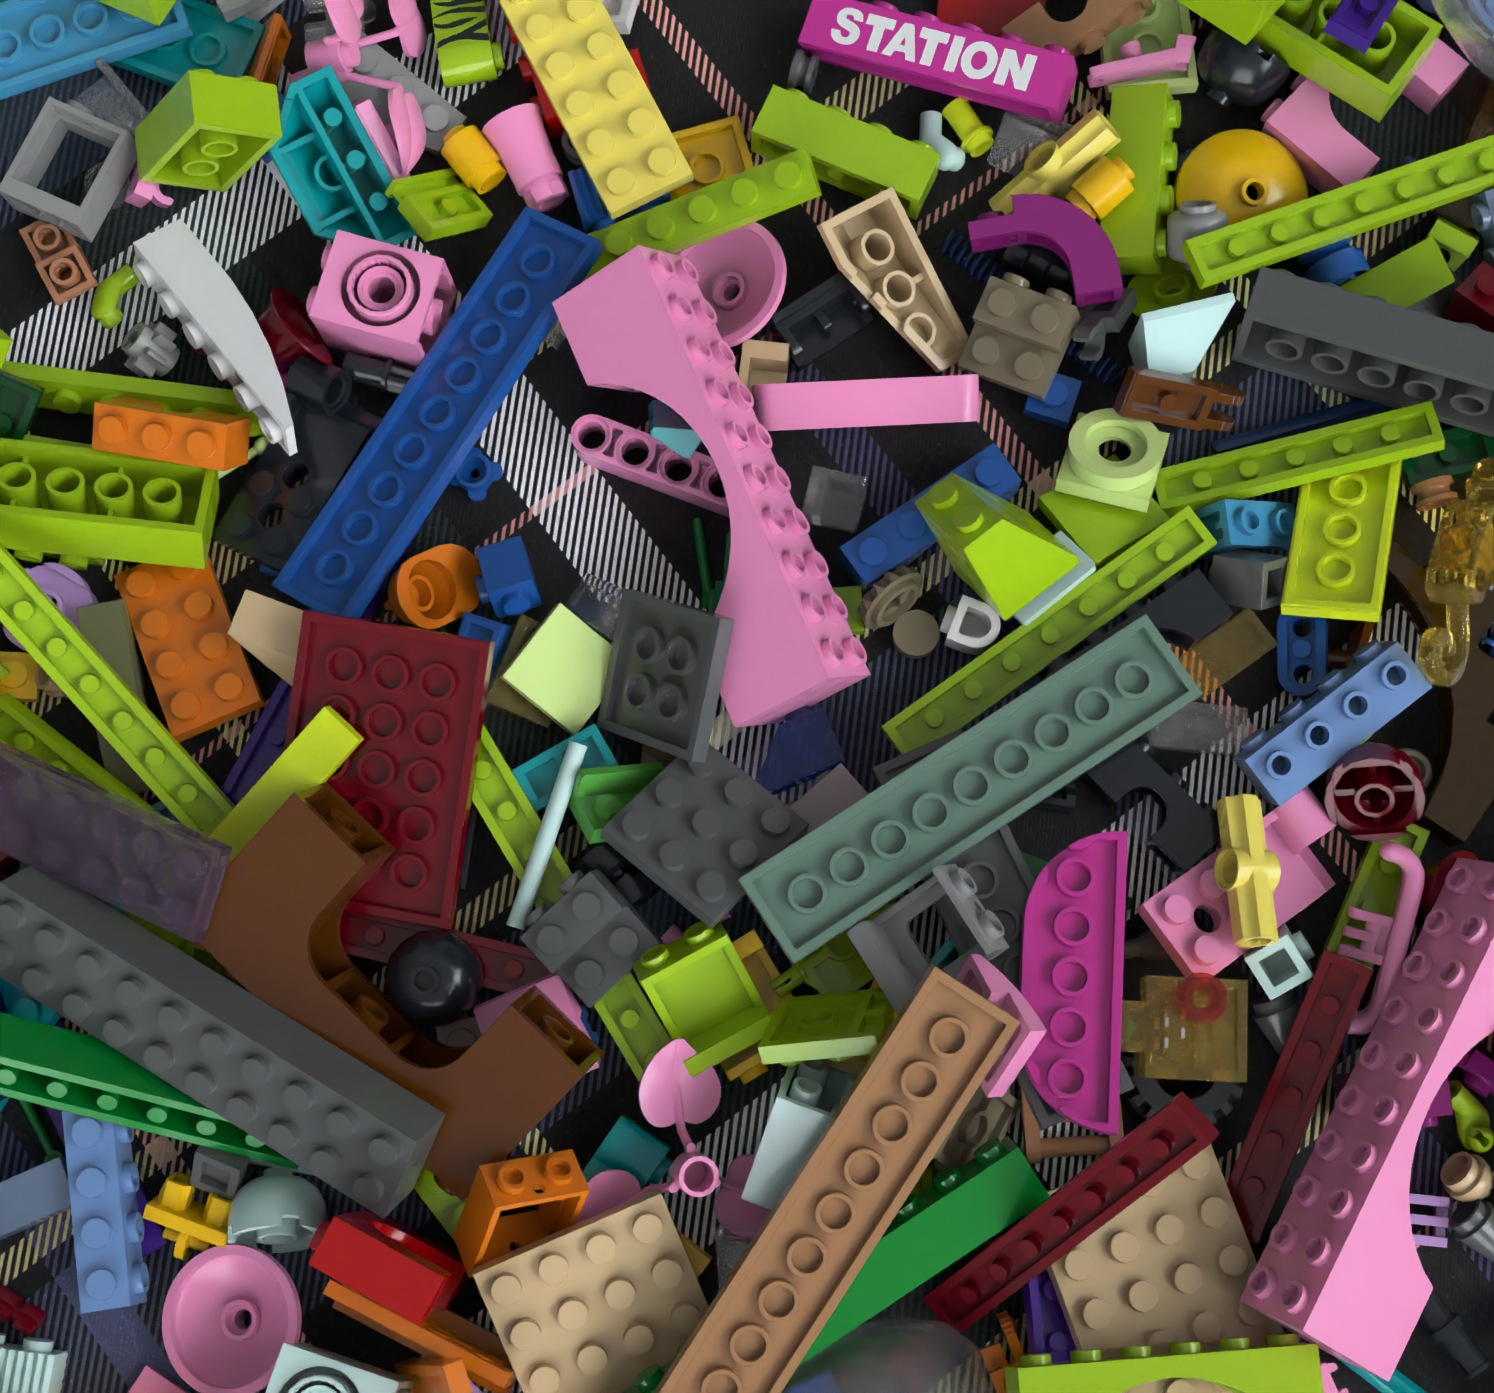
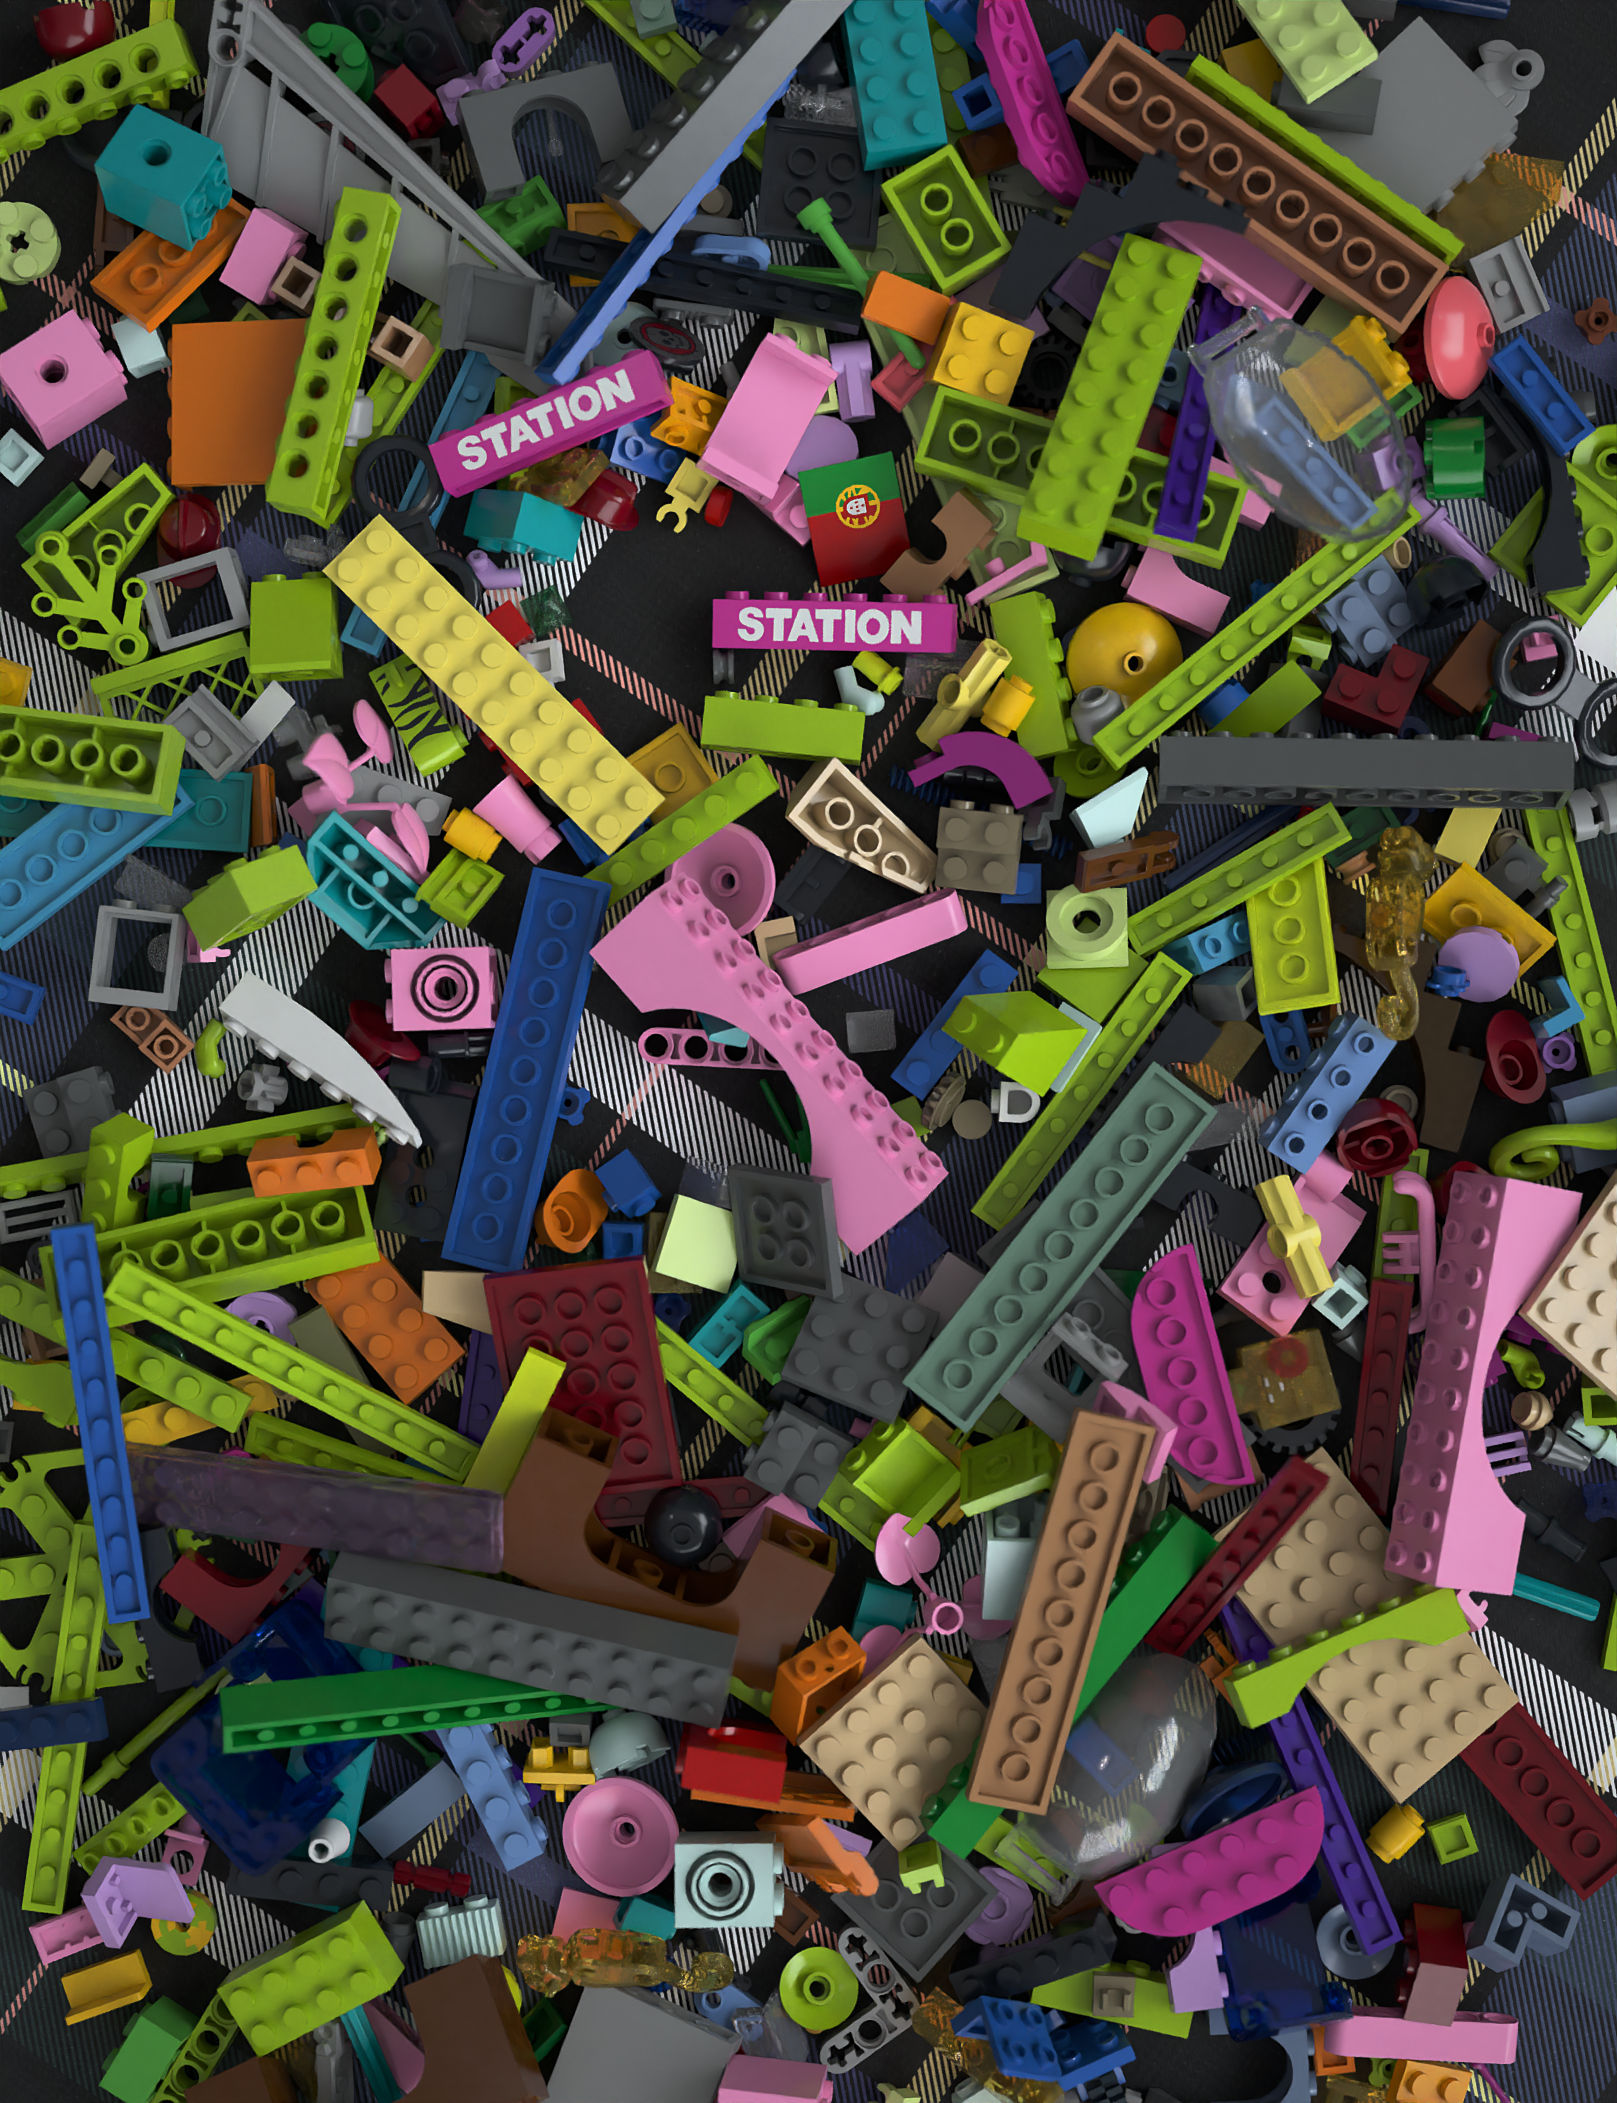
camera: 30 degrees left, 10 degrees up
(515, 729) = (678, 1306): none -> clear blue plate
(547, 835) = (734, 1386): light aqua bar -> none

